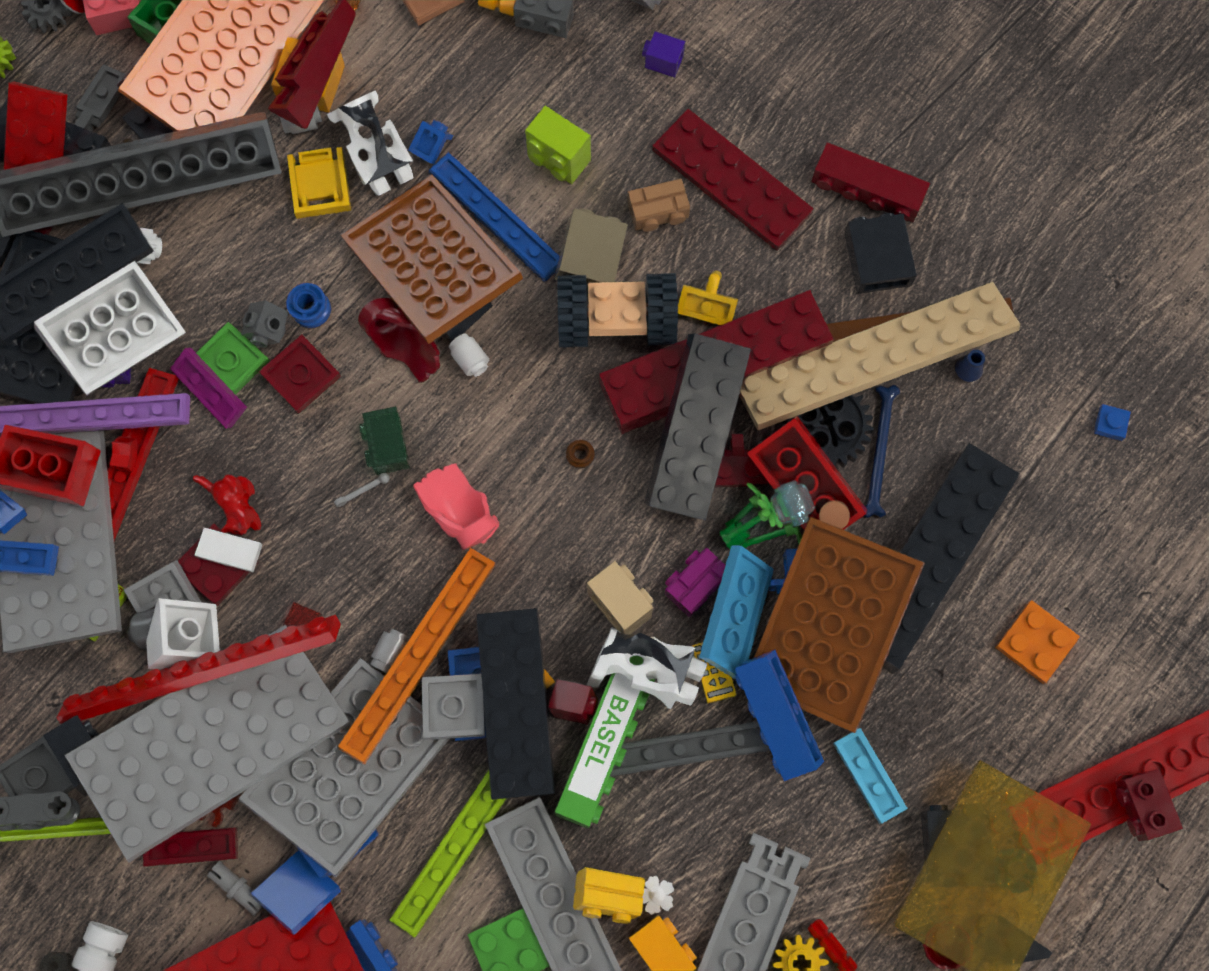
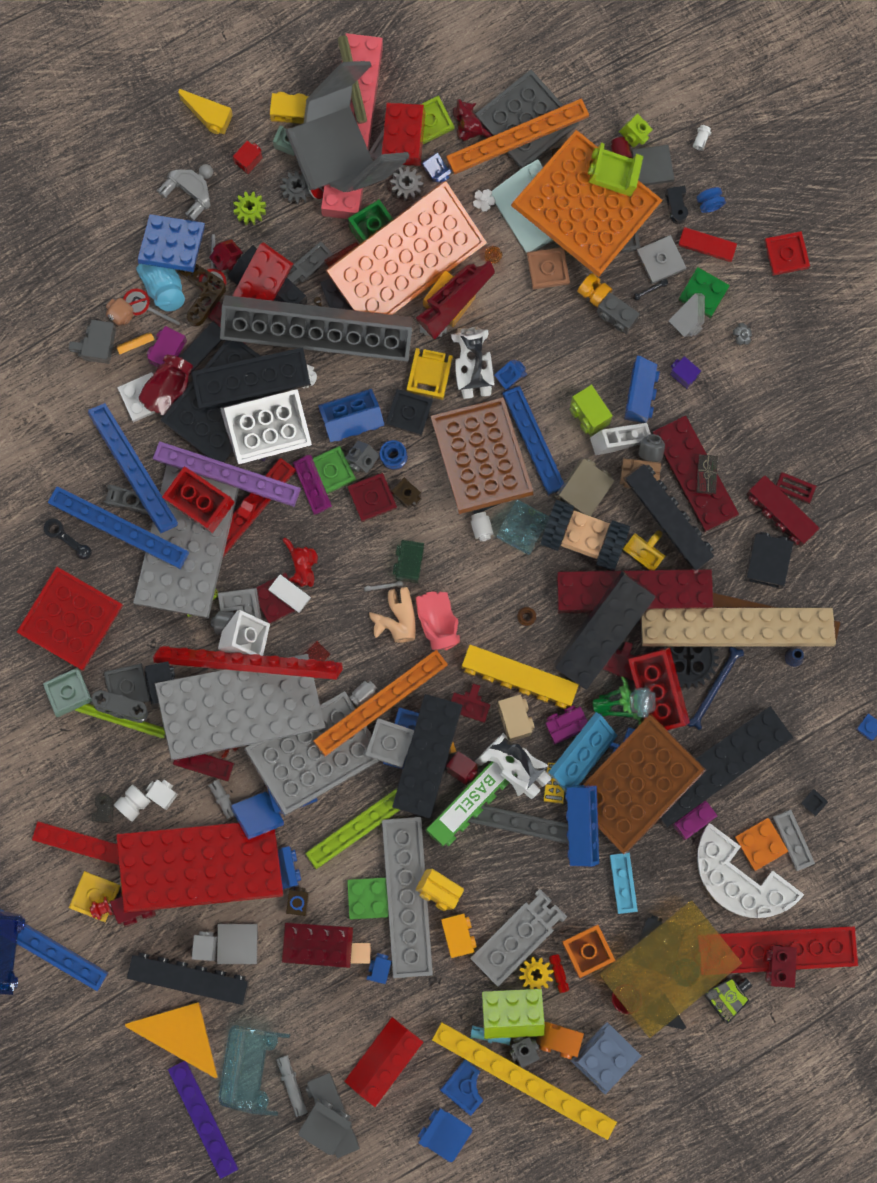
camera: 20 degrees right, 5 degrees up
(140, 917) = (161, 793): none -> white brick
(230, 275) = (351, 415): none -> blue slope
(309, 241) = (409, 412): none -> black plate
(351, 359) = (407, 501): none -> dark brown brick
(399, 338) = (441, 499): dark red hair -> none
(415, 536) = (406, 628): none -> light nougat piece
(526, 336) = (522, 527): none -> clear light blue bracket
(553, 607) = (472, 704): none -> dark red hinge
(603, 539) = (520, 676): none -> yellow brick
(611, 169) = (619, 438): none -> white slope
(615, 96) = (641, 390): none -> blue slope
(657, 895) = (467, 902): white plant -> none
(661, 164) = (652, 448): none -> dark grey head
(722, 240) = (668, 516): none -> black brick
(749, 170) = (707, 474): none -> clear smoke tile
(835, 514) = (666, 718): nougat tile -> none
(862, 897) = (588, 951): none -> orange brick
(881, 154) = (798, 481): none -> dark red tile
(933, 645) = (694, 820): none -> magenta brick
(1029, 719) = (734, 888): none -> white plate
(1080, 618) = (793, 840): none -> light grey tile
(1084, 554) = (814, 802): none -> black plate
(1092, 883) = (728, 997): none -> torso

